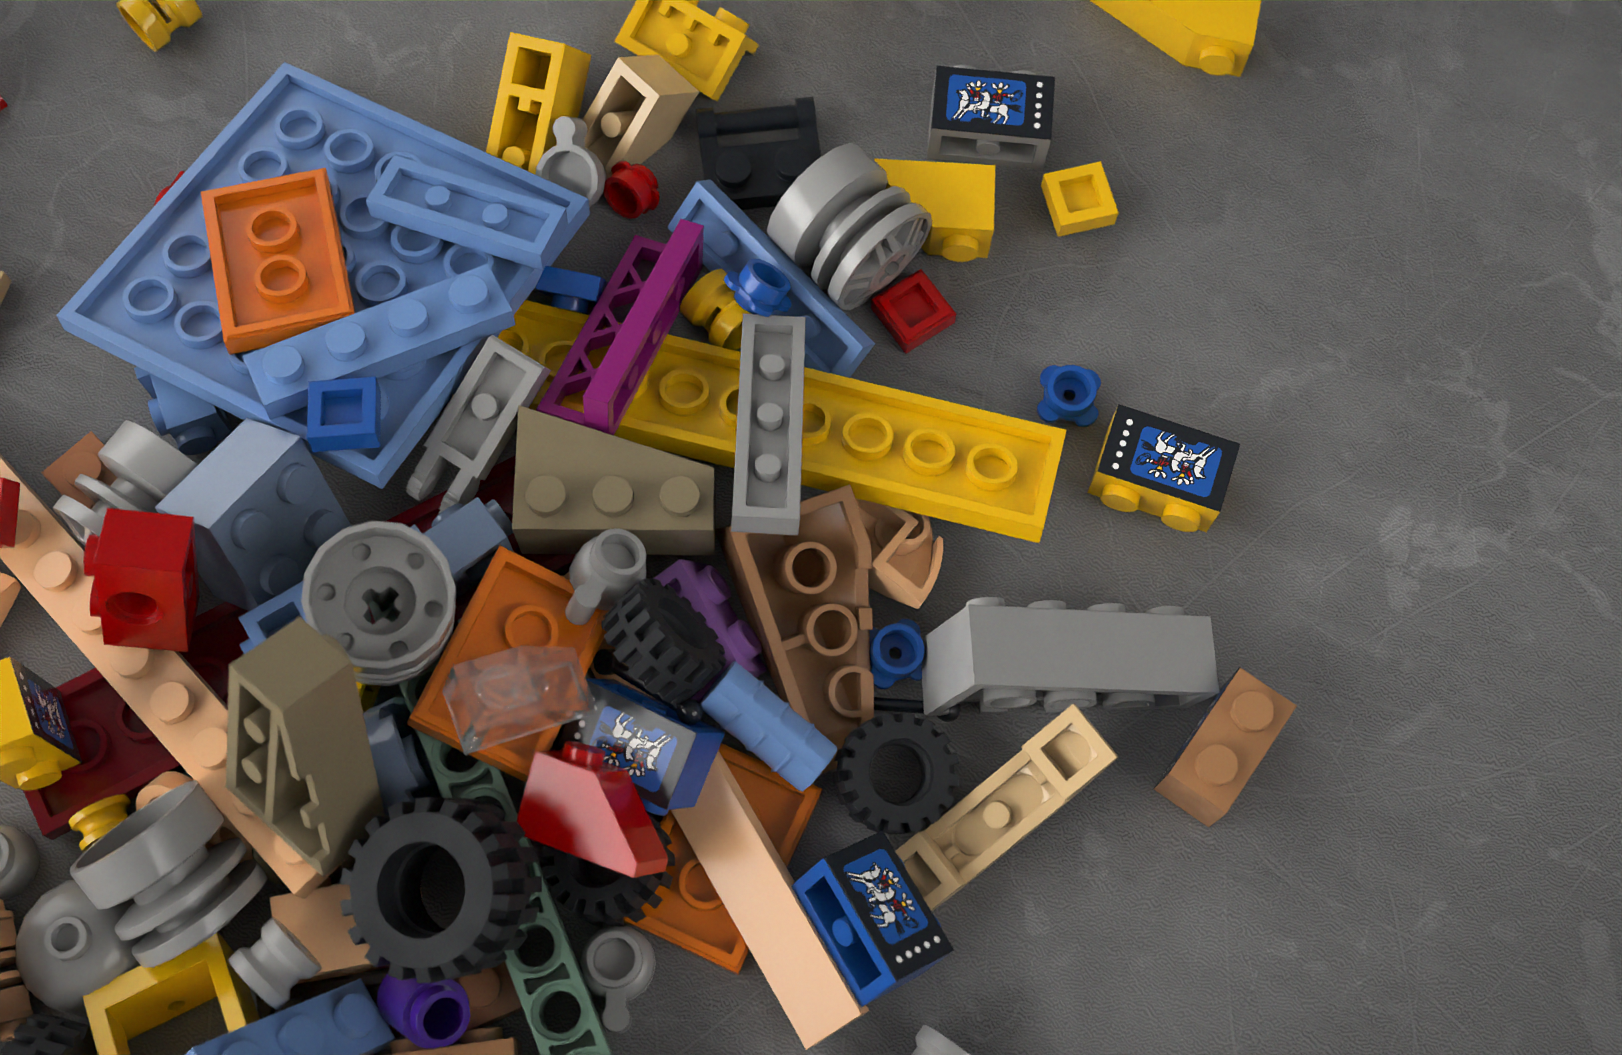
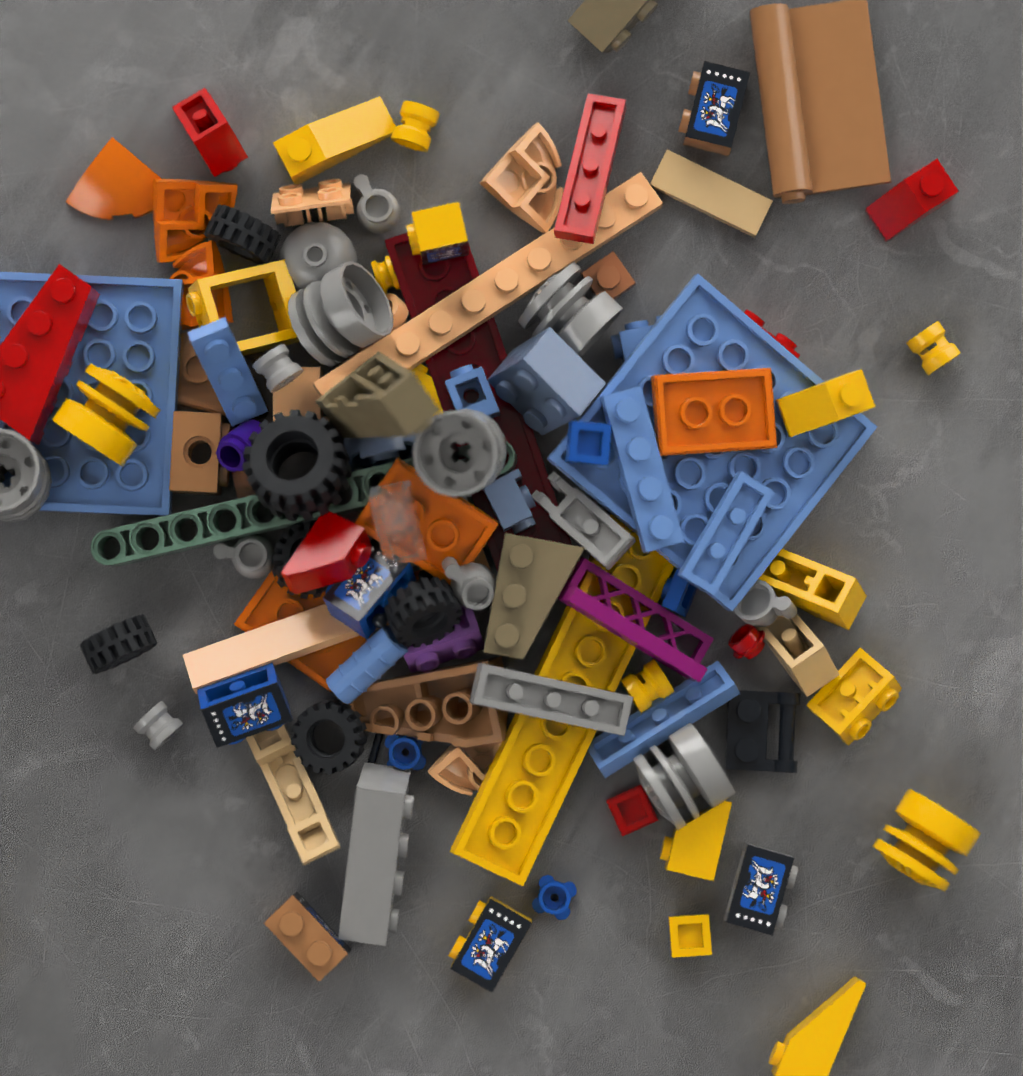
camera: 105 degrees right, 15 degrees up
(144, 579) = (507, 316): red brick -> none
(248, 109) = (825, 403): none -> yellow slope
(760, 288) = (649, 710): blue plate -> none

